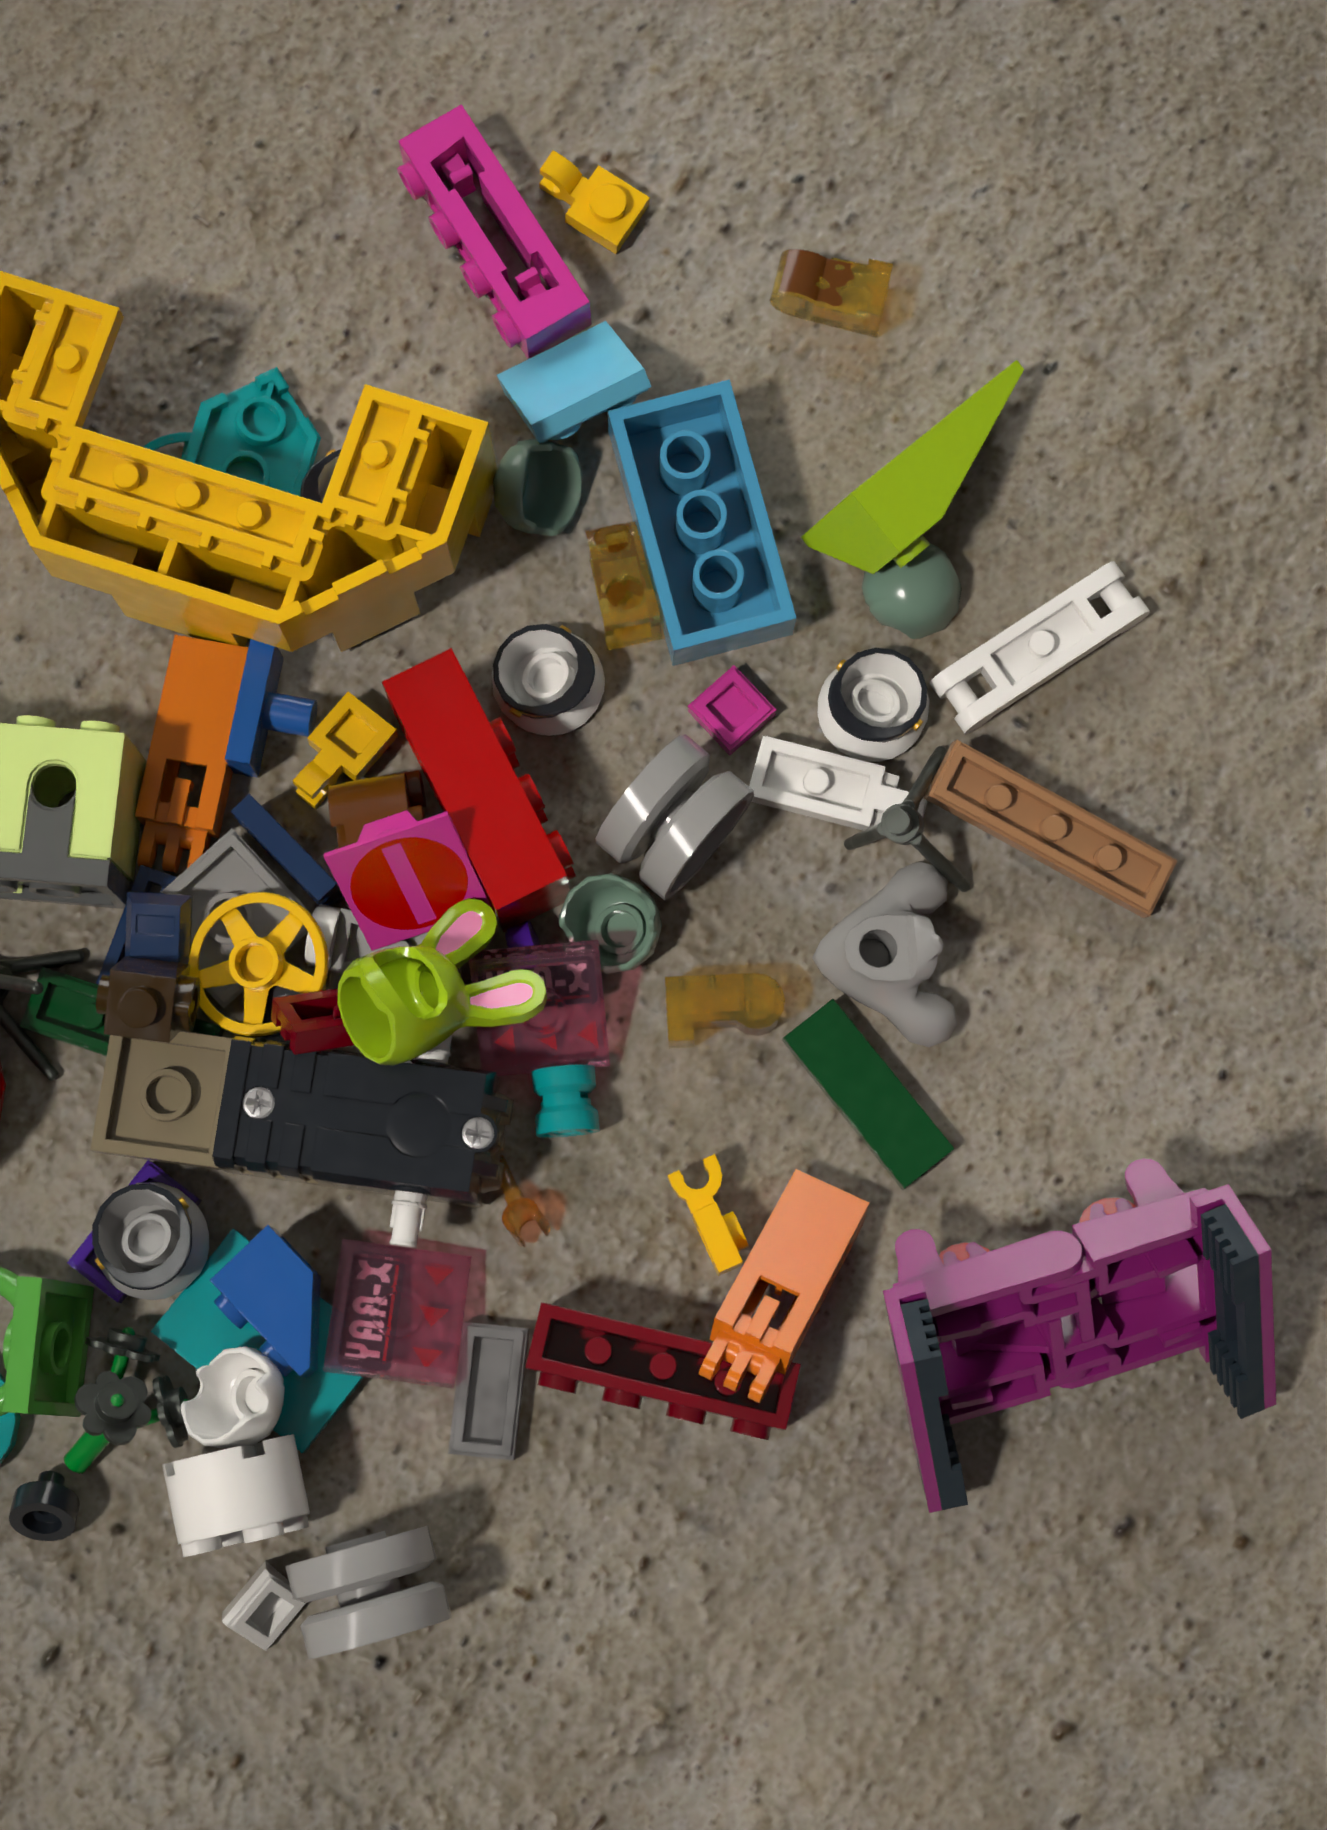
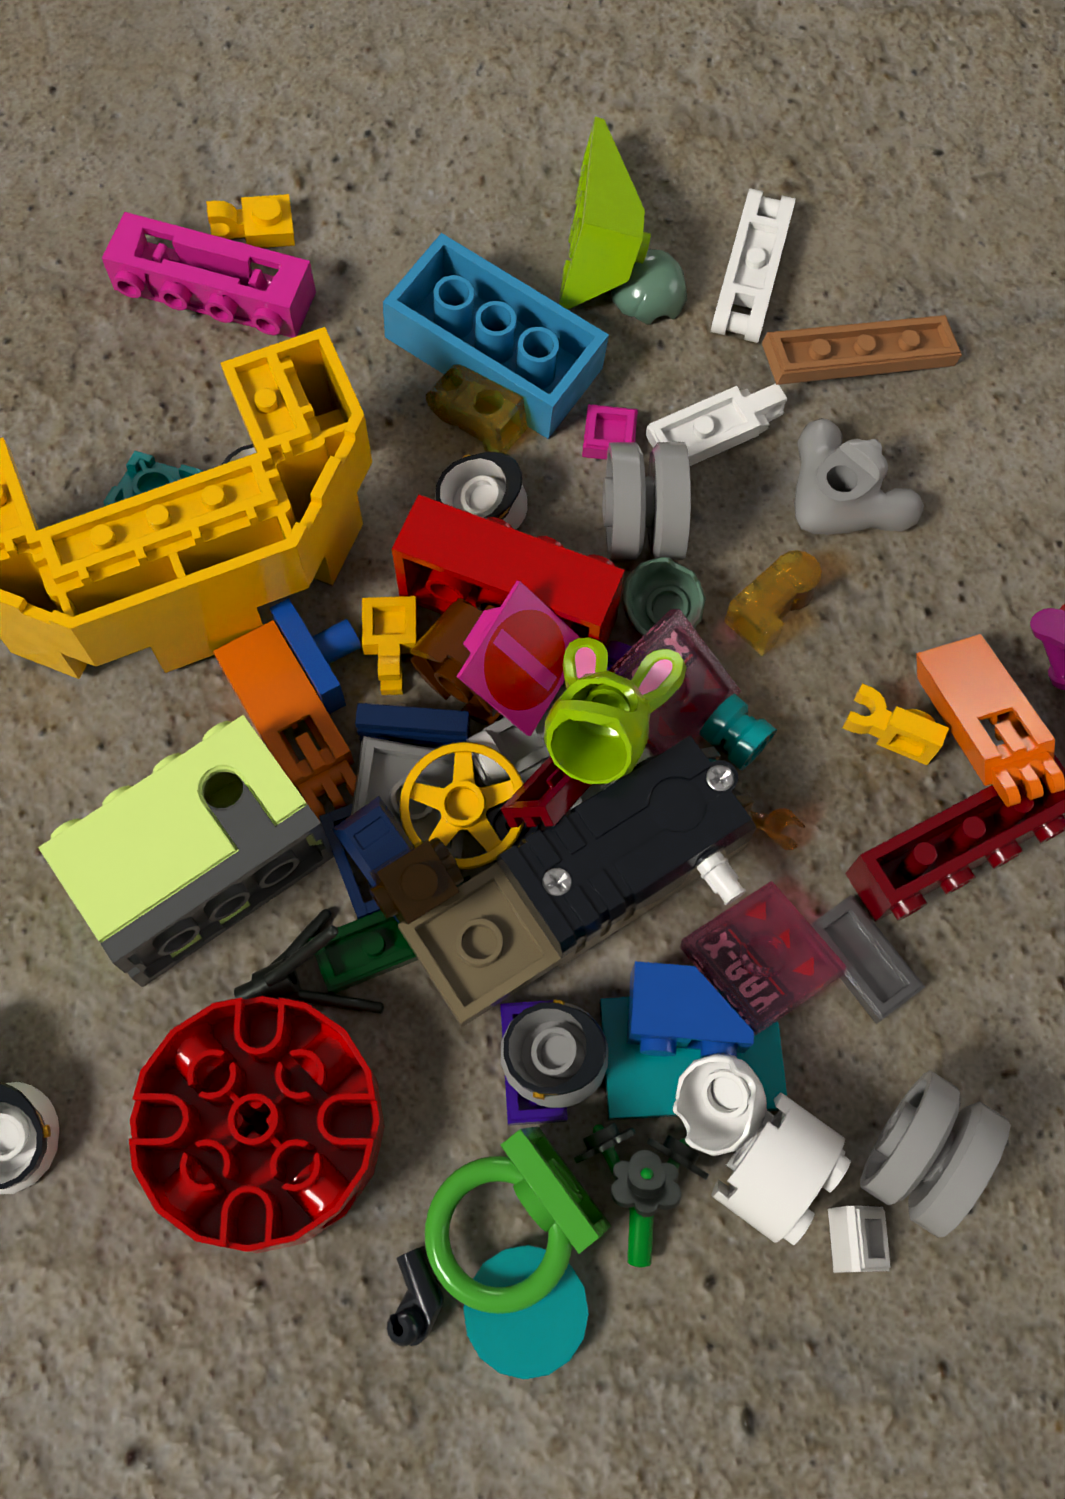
camera: 45 degrees left, 10 degrees down
(44, 1508) = (652, 1311): black tile -> none
(538, 487) = (376, 389): sand green hair -> none
(574, 382) = (349, 304): medium azure tile -> none
(832, 290) = (450, 165): clear yellow leg -> none
(867, 1094) = (908, 581): dark green tile -> none
(874, 705) = (690, 362): white piece -> none
(906, 826) = (787, 398): pearl dark grey plant -> none

